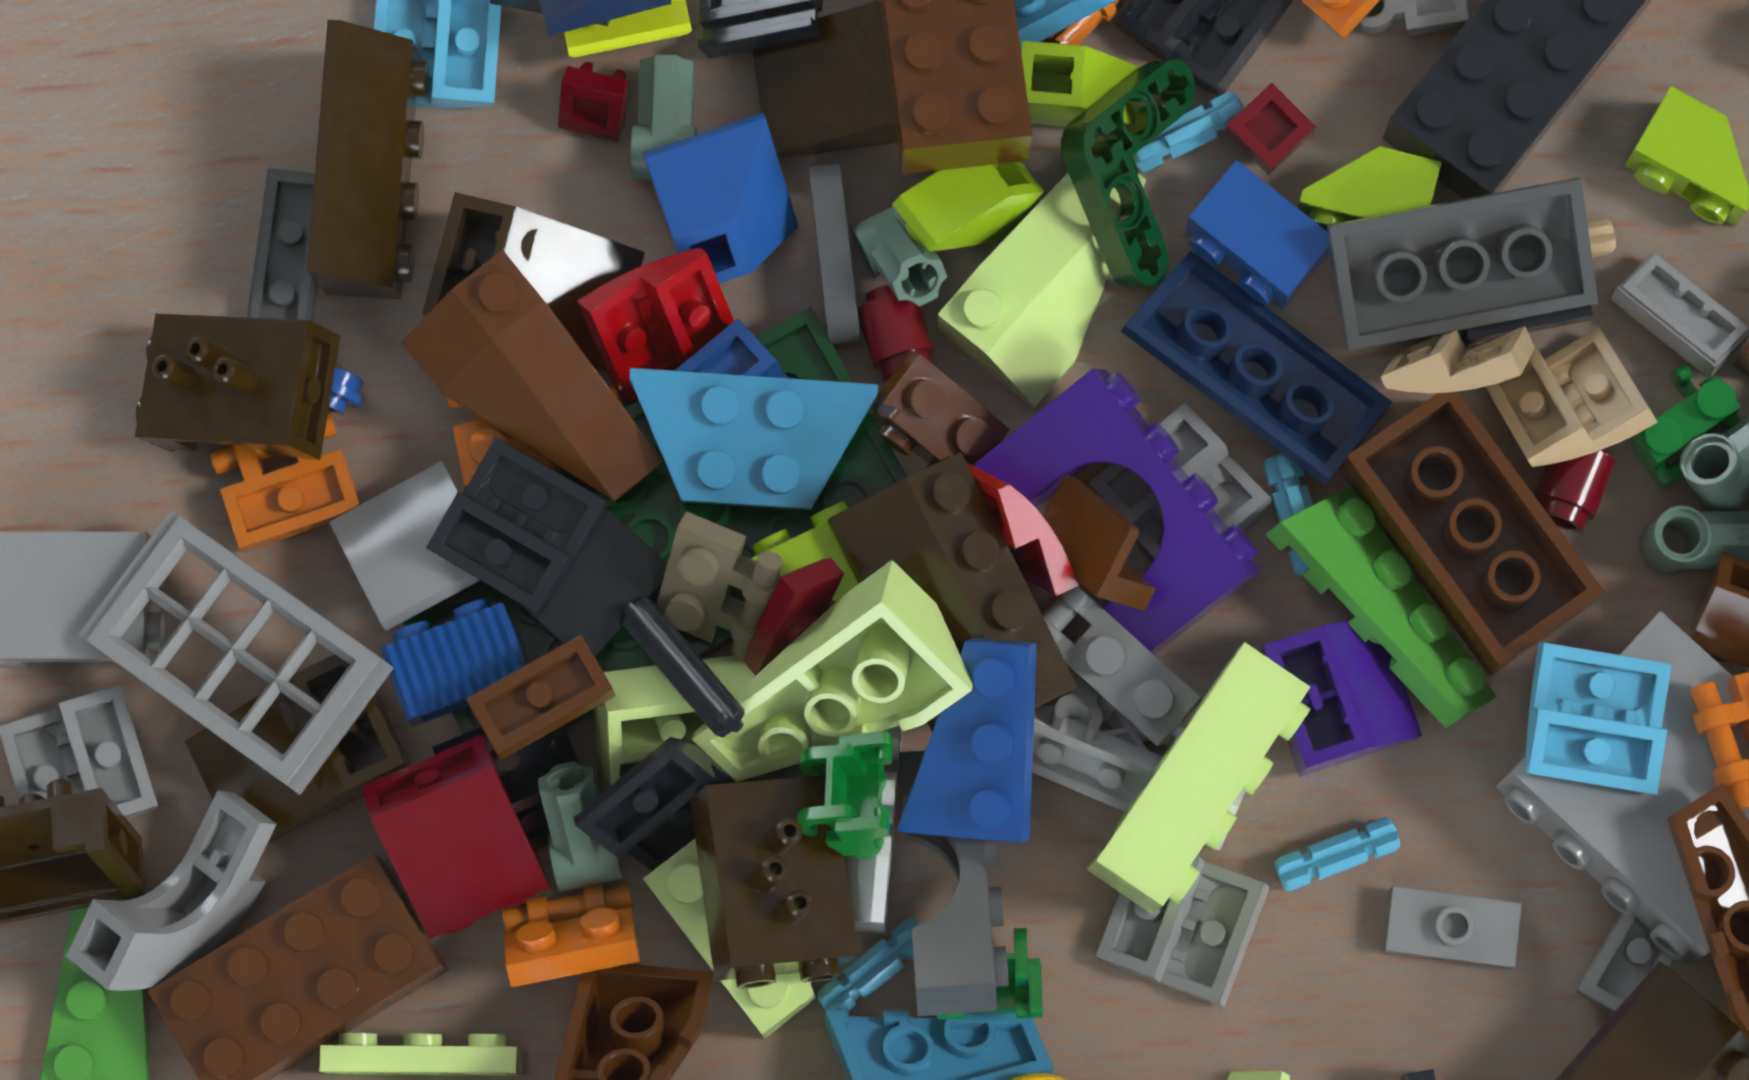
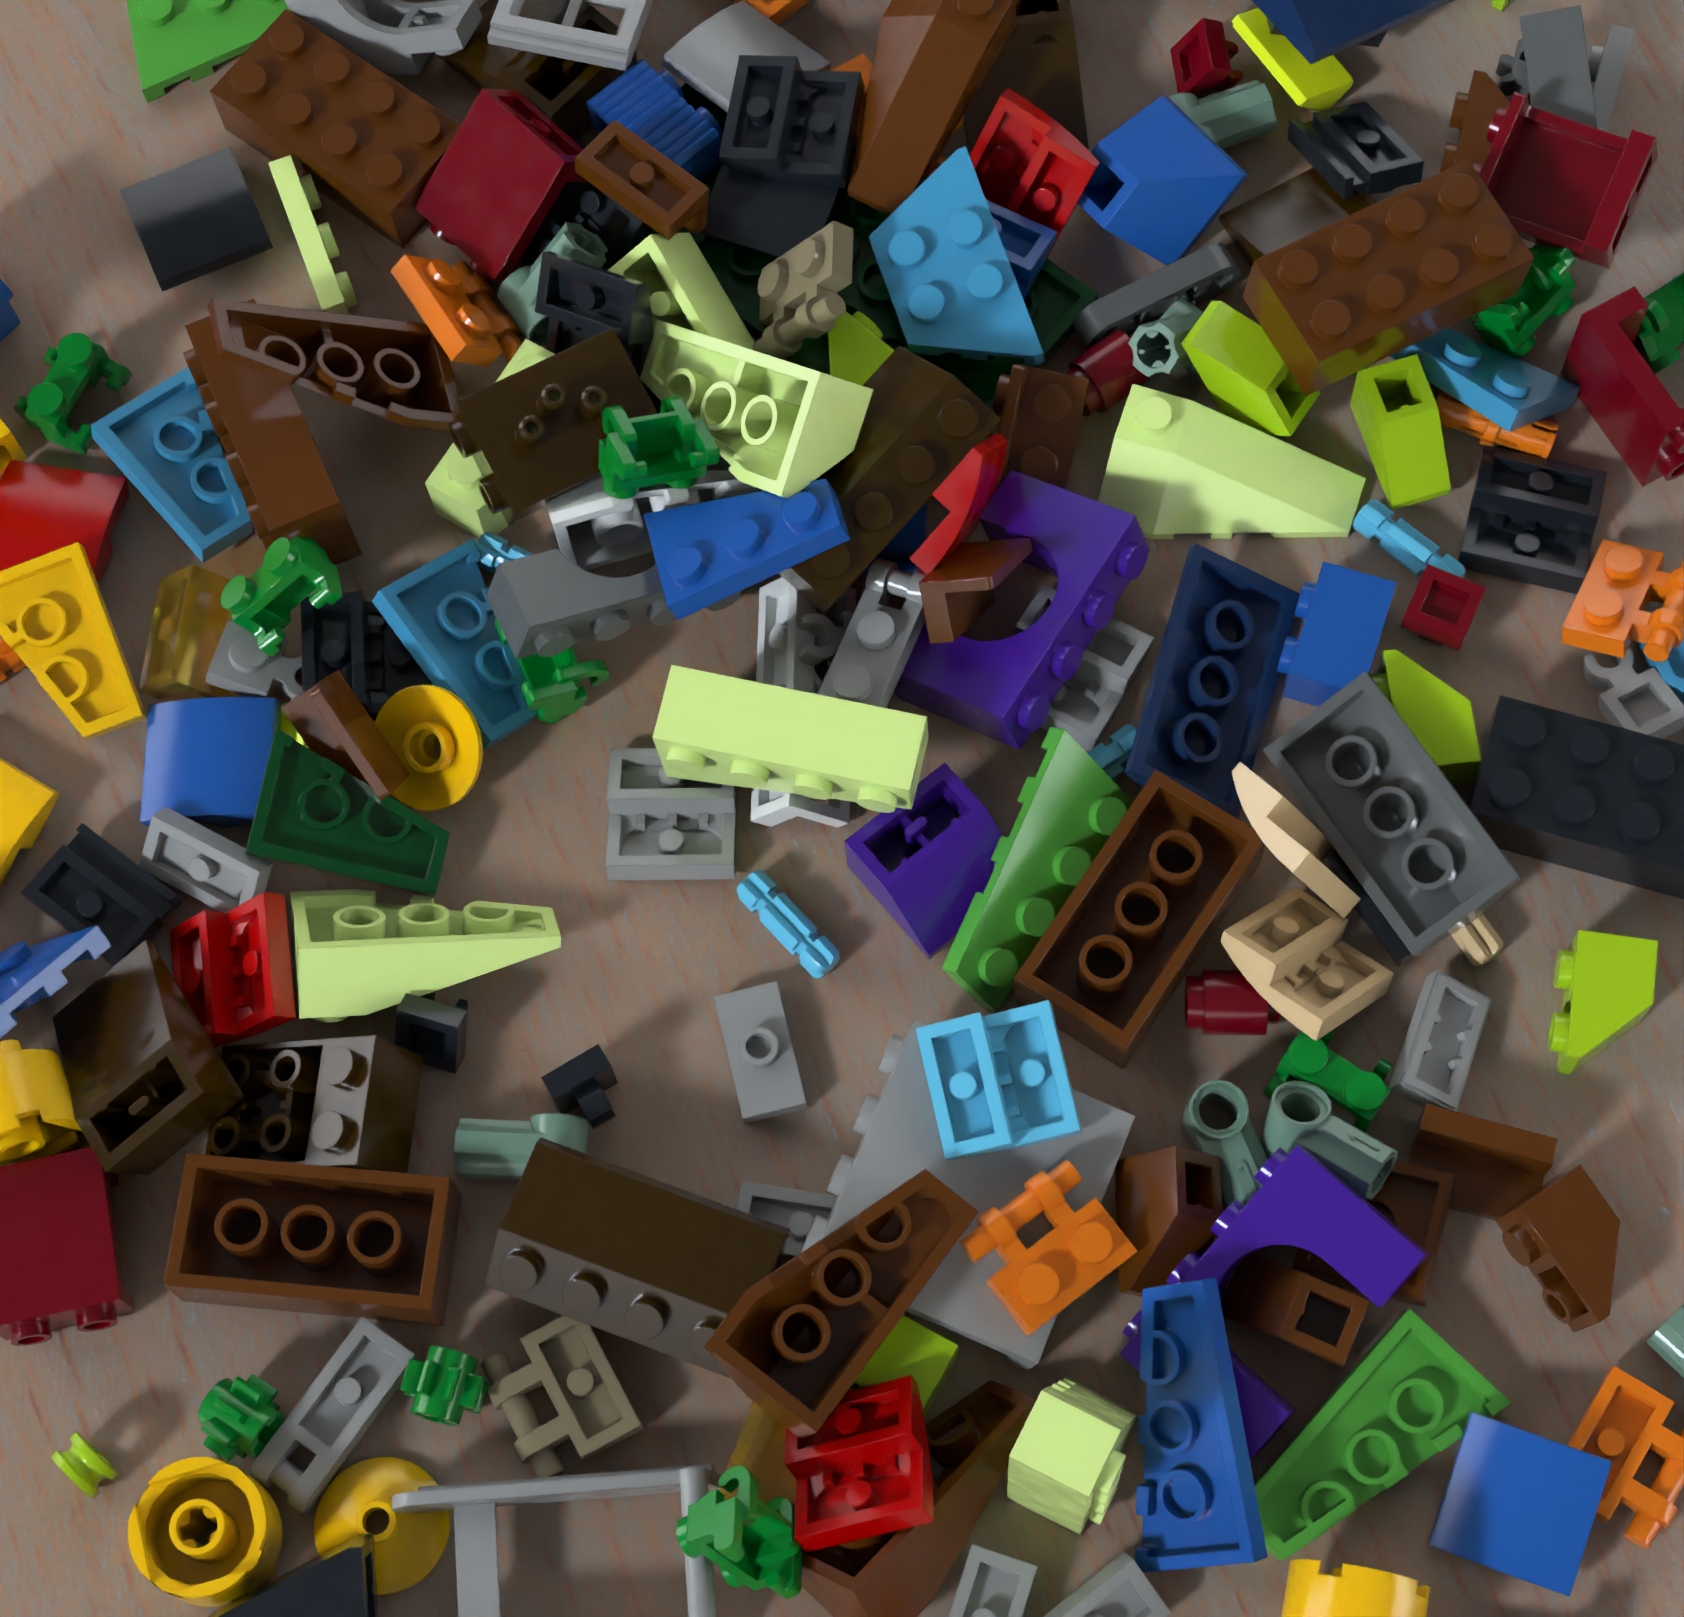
camera: 70 degrees right, 10 degrees down
(683, 667) = (717, 286): black axle -> none
(792, 608) = (811, 343): dark red plate -> none
(1133, 241) = (1338, 476): dark green beam -> none

